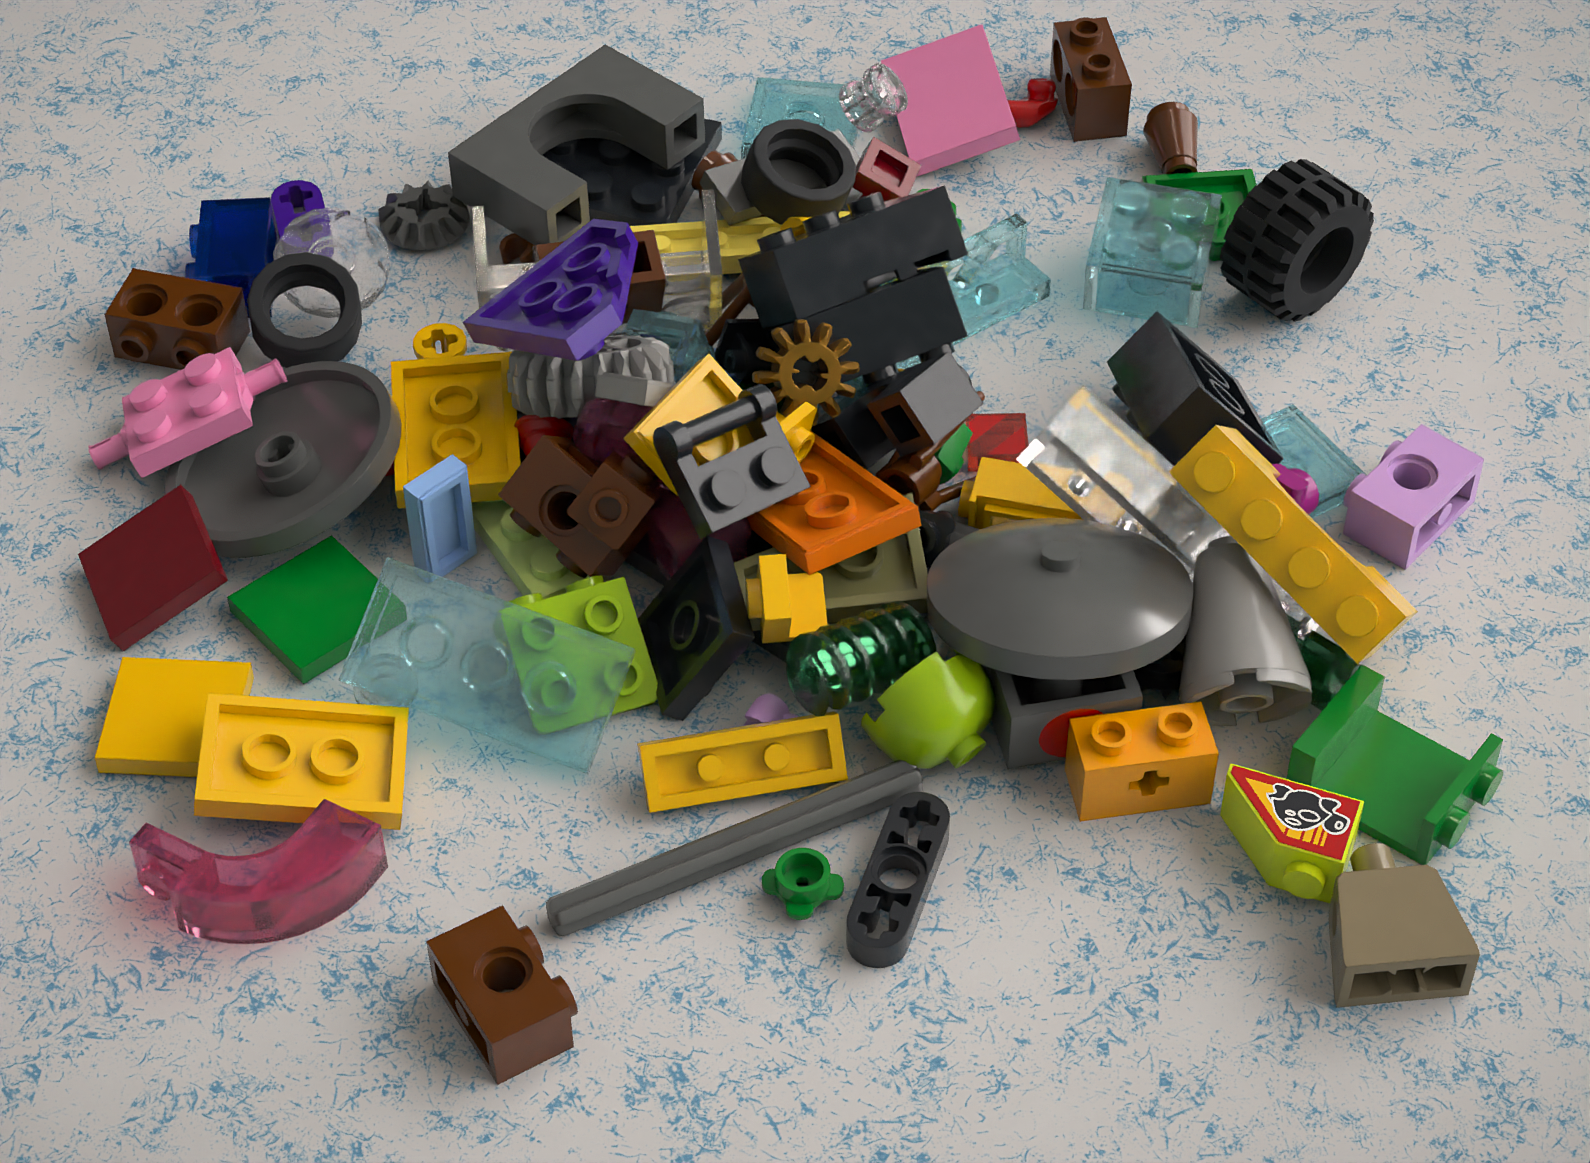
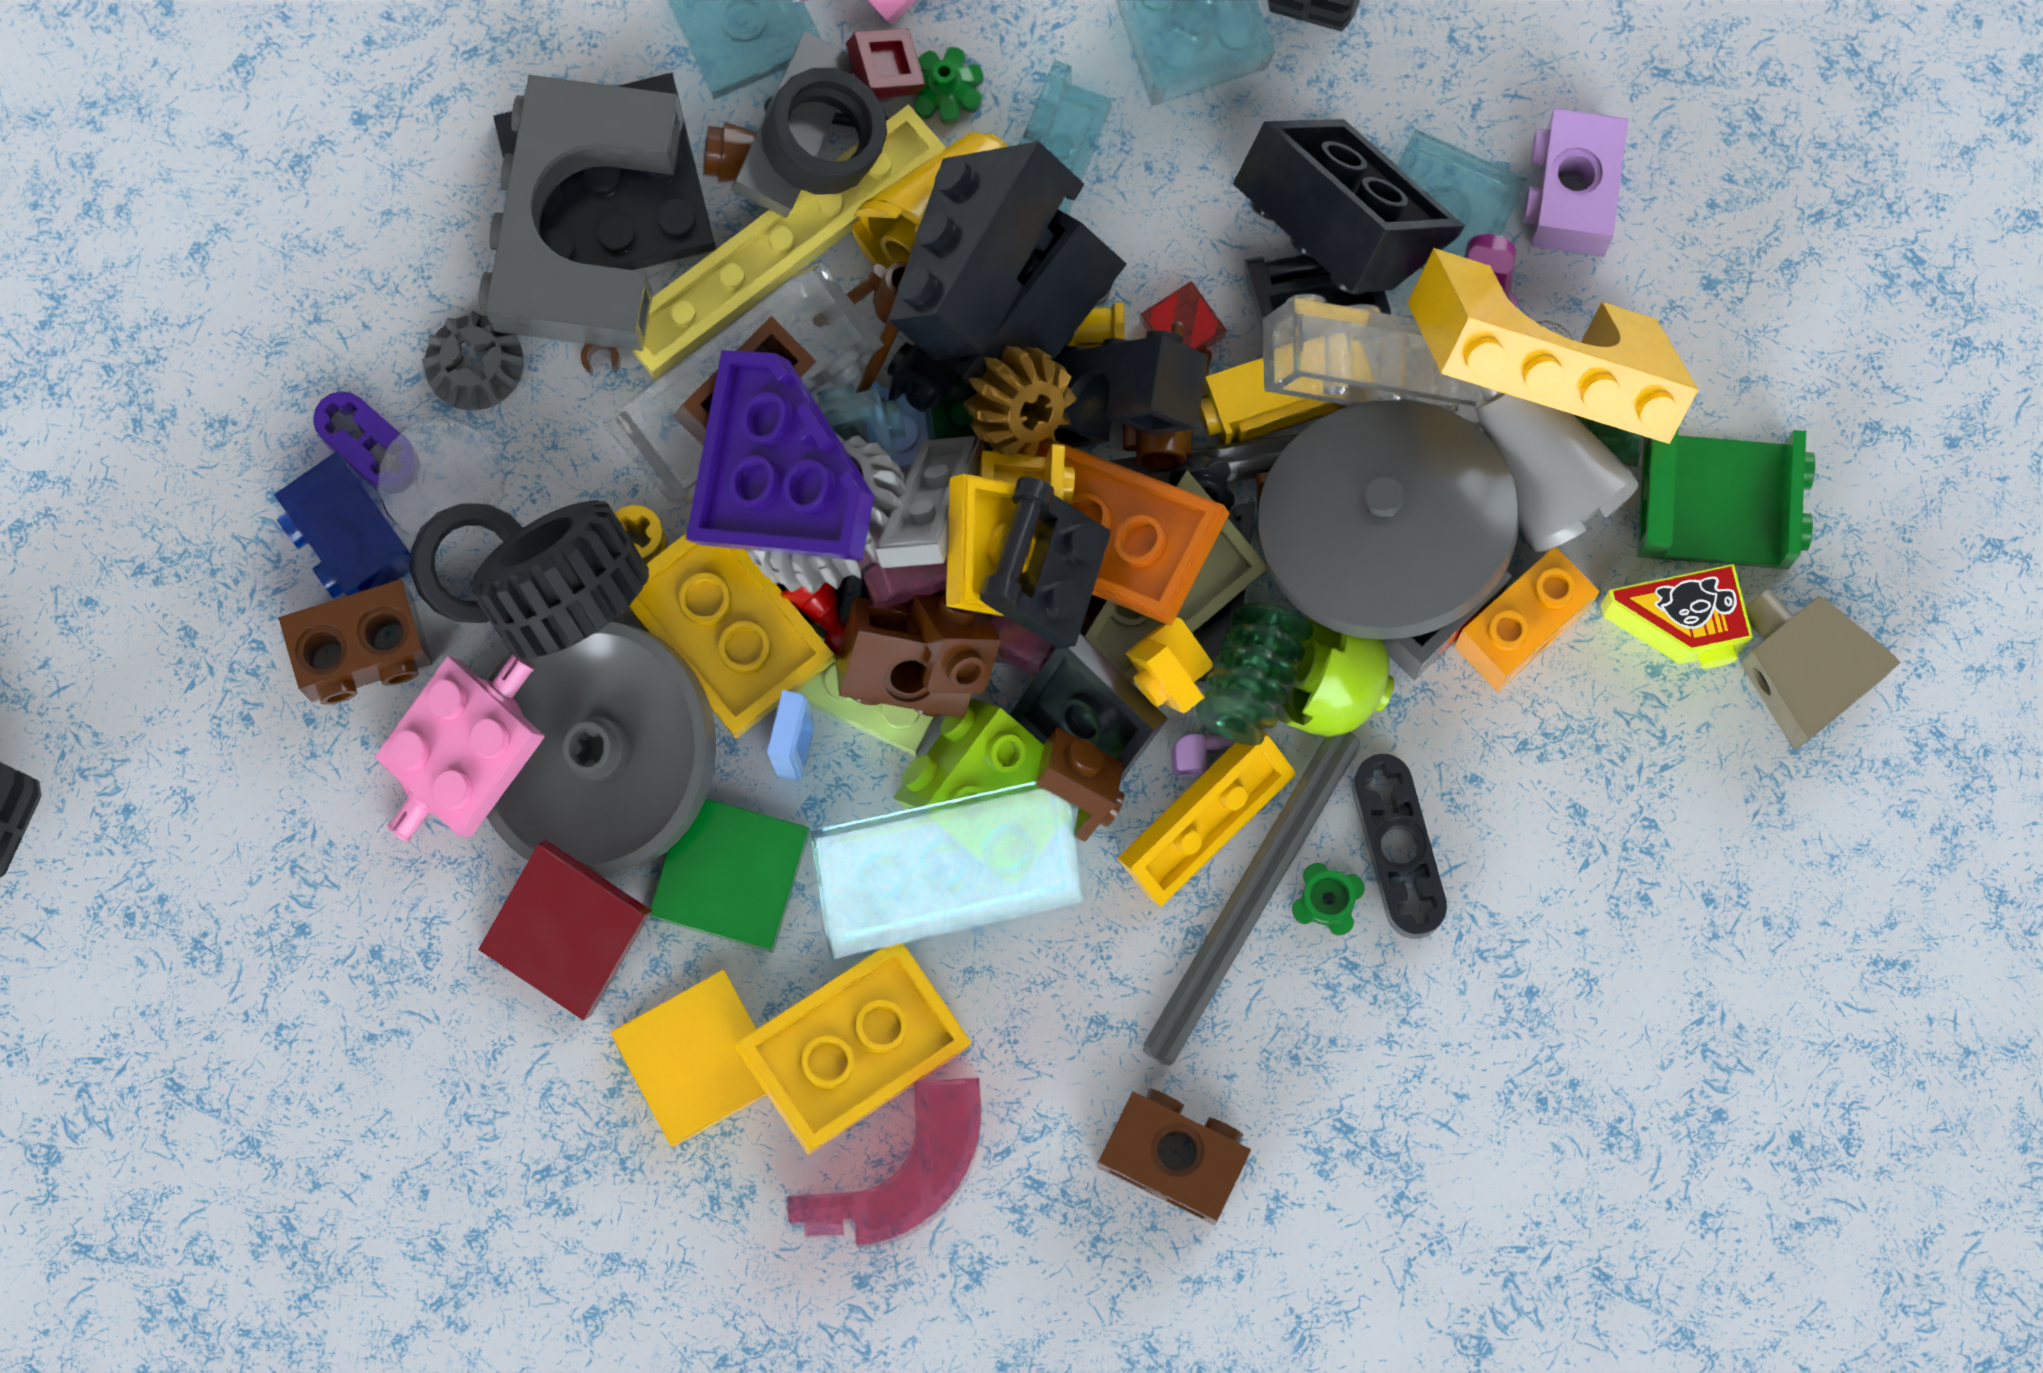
camera: 30 degrees left, 30 degrees up
(349, 311) = (559, 579): none -> black tyre
(653, 653) = (1082, 777): none -> reddish brown bracket

